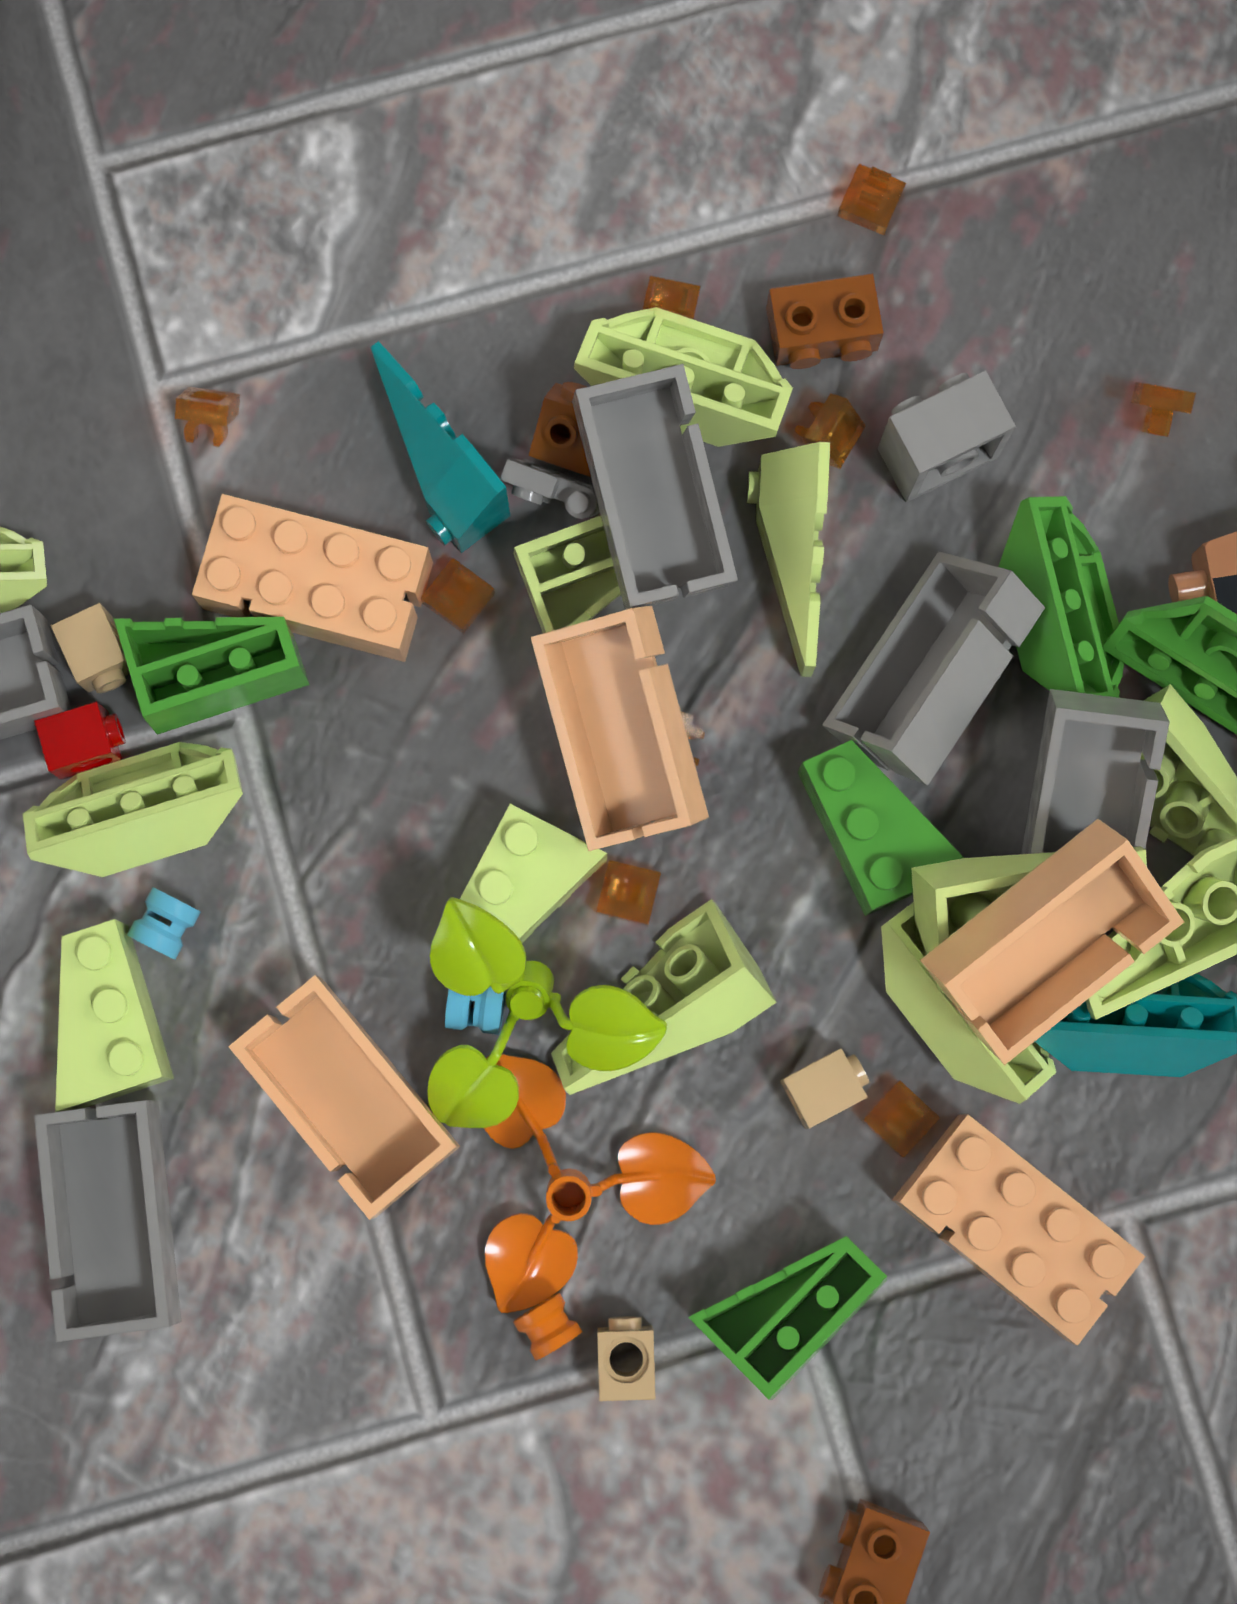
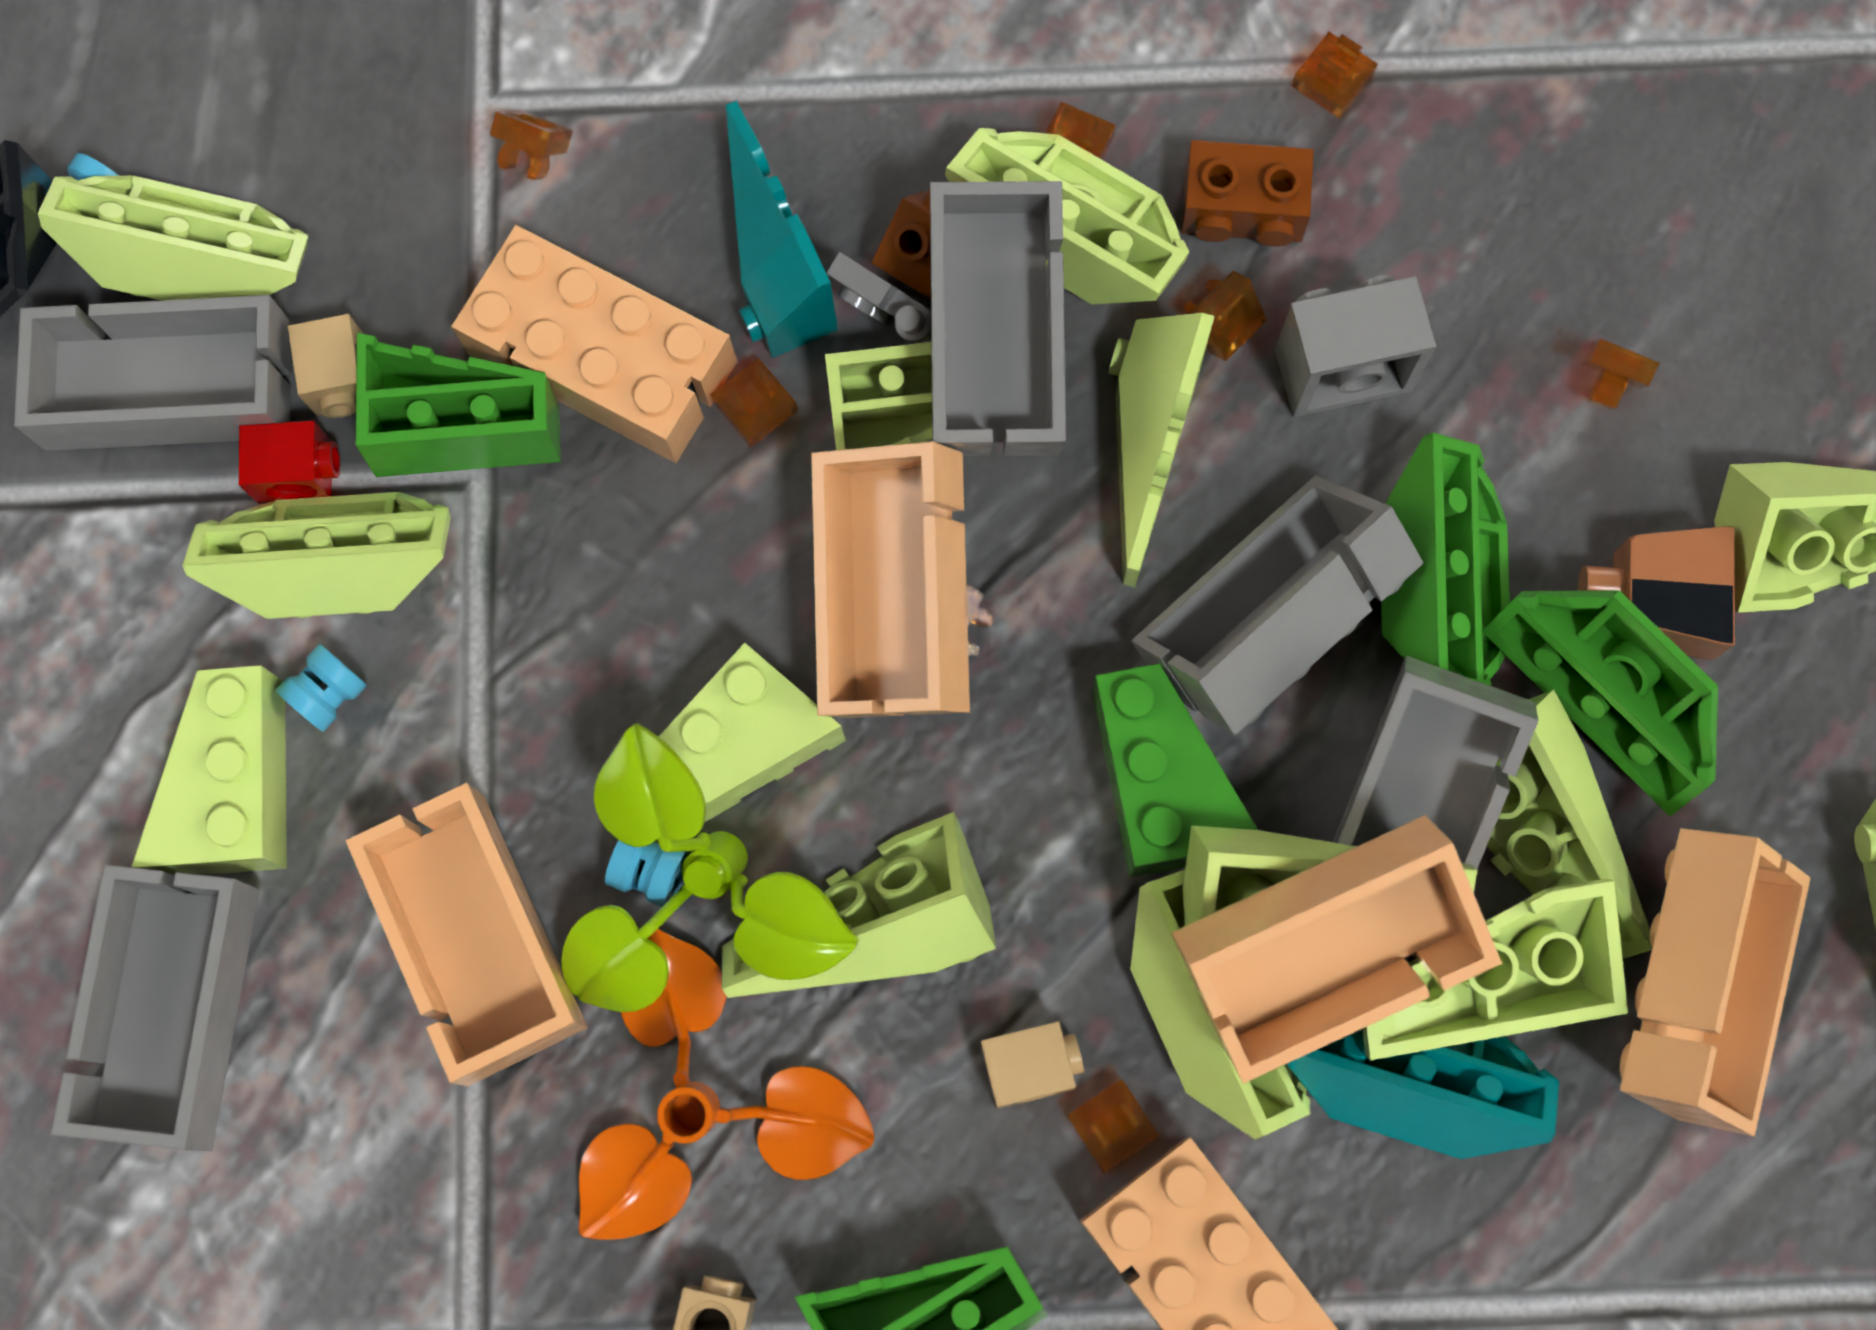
camera: 20 degrees right, 5 degrees down
(547, 1326) = (629, 1266): orange wheel -> none
(628, 893) = (859, 782): clear orange tile -> none

